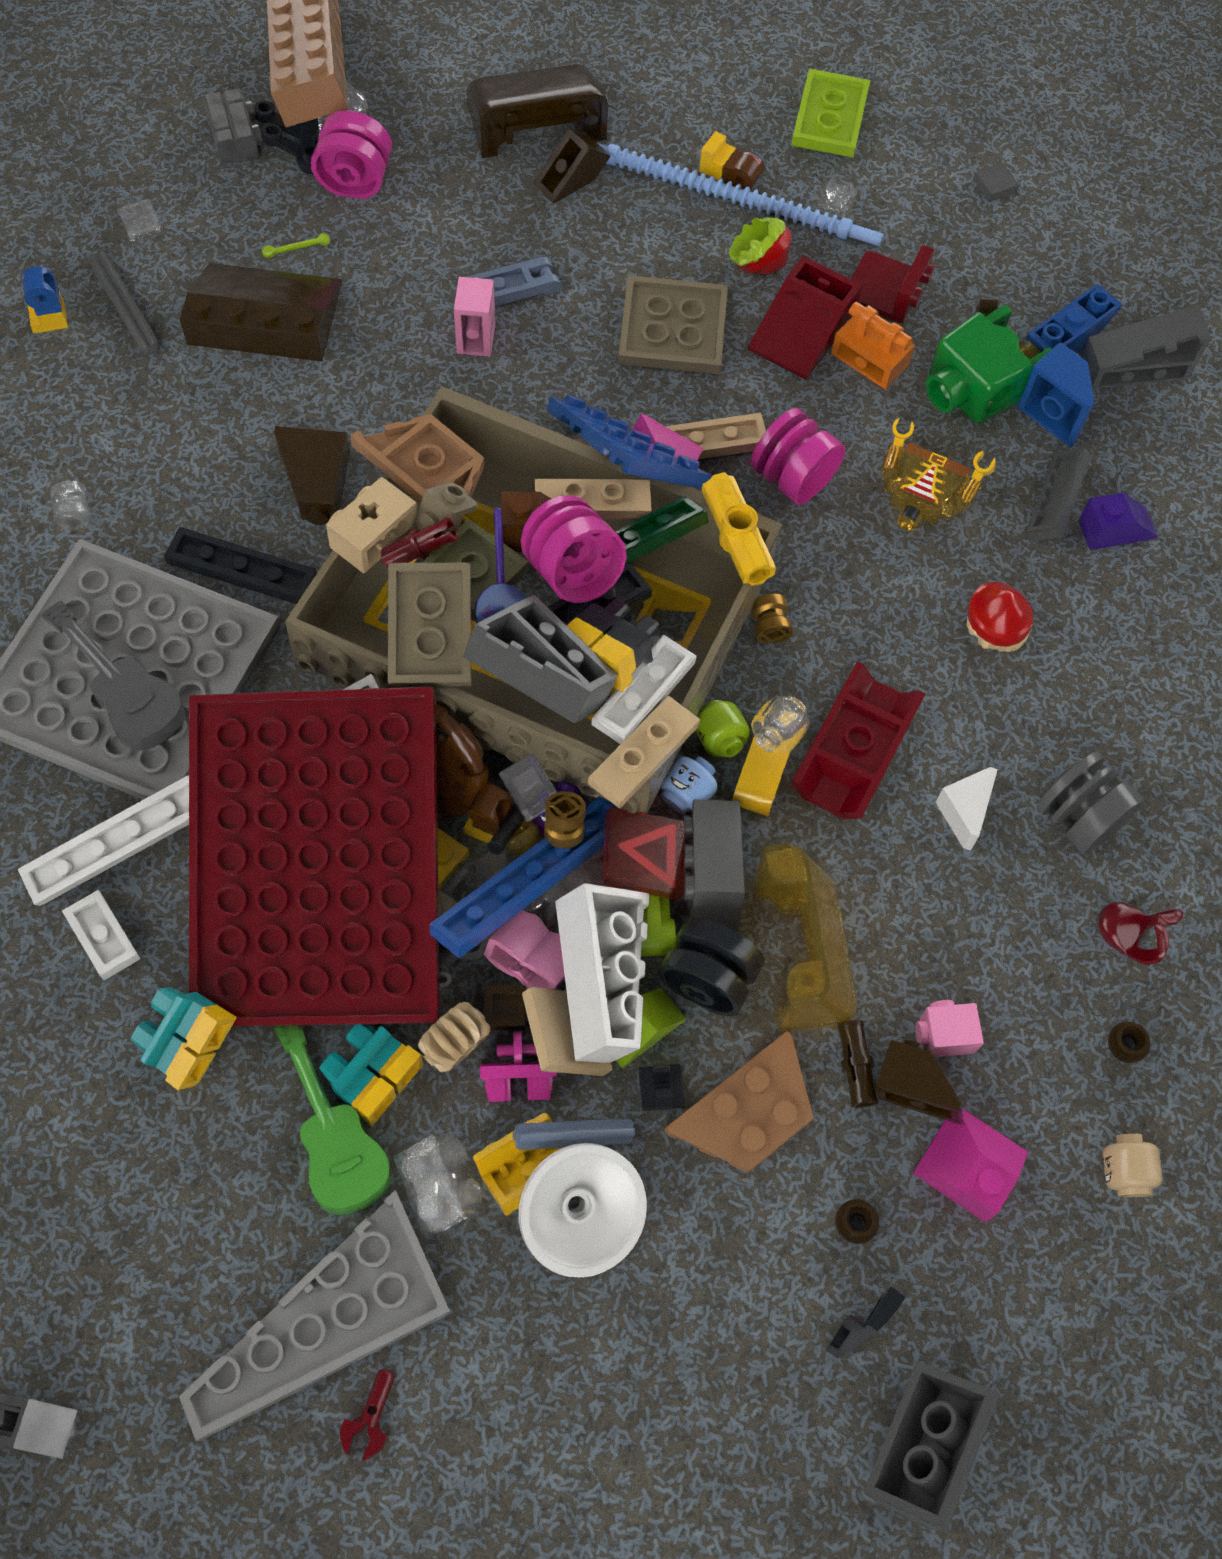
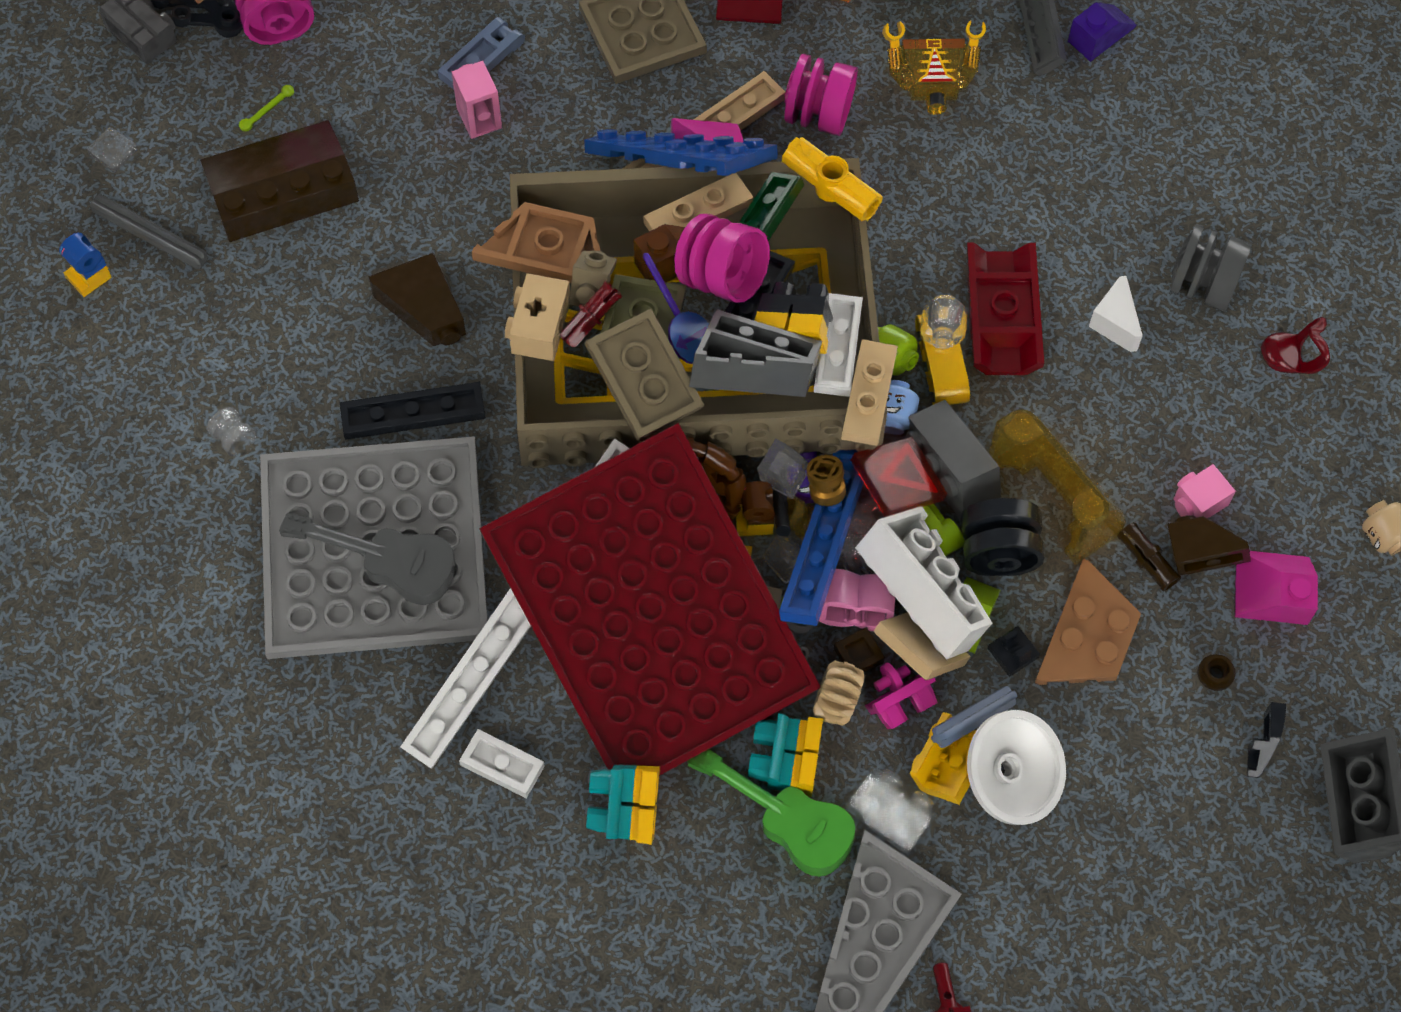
camera: 25 degrees left, 0 degrees up
(771, 618) = (881, 243): pearl gold wheel -> none
(999, 617) = (1054, 152): red hair -> none
(1137, 1034) = (1338, 428): dark brown plate -> none

